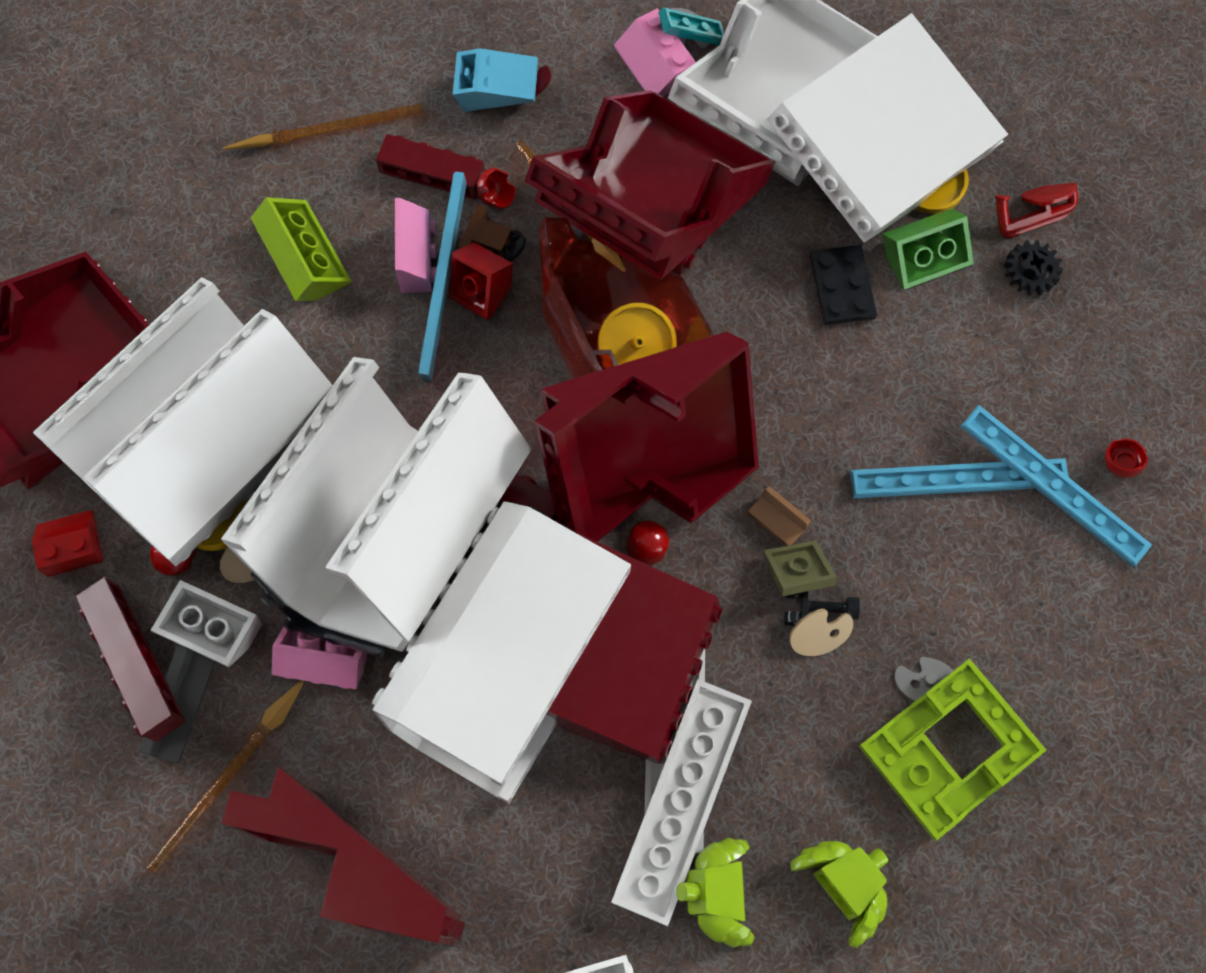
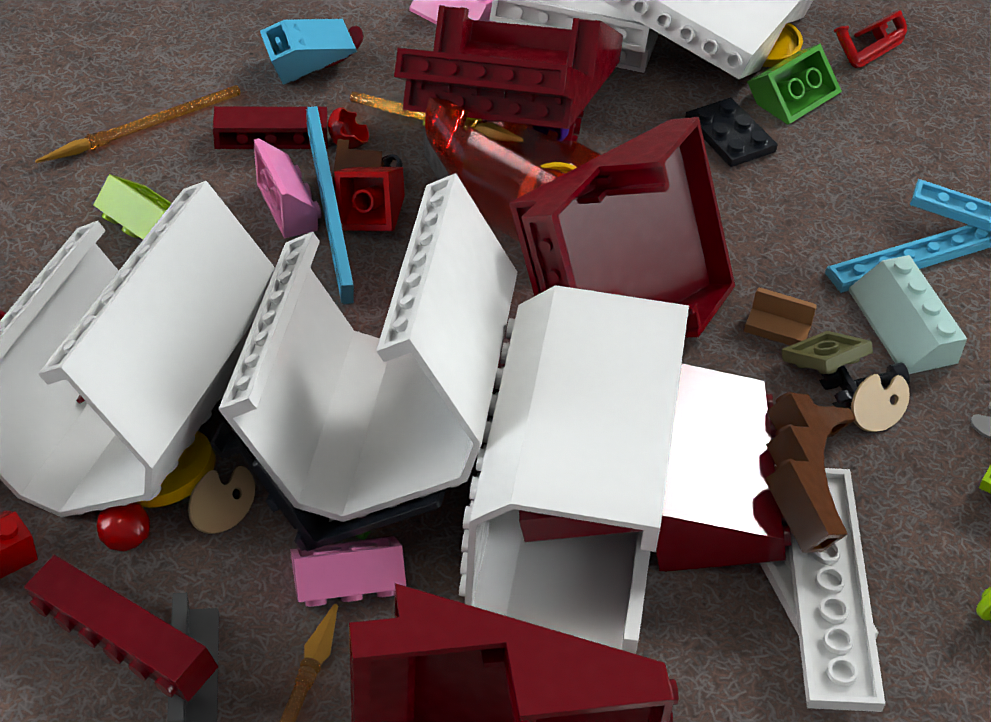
camera: 20 degrees left, 25 degrees down
(207, 624) = (201, 564): white slope -> none
(691, 716) = (800, 474): none -> reddish brown arch
(717, 893) = (922, 663): lime torso -> none
(892, 548) = (908, 316): none -> light aqua slope
(1033, 267) = (898, 78): black gear -> none

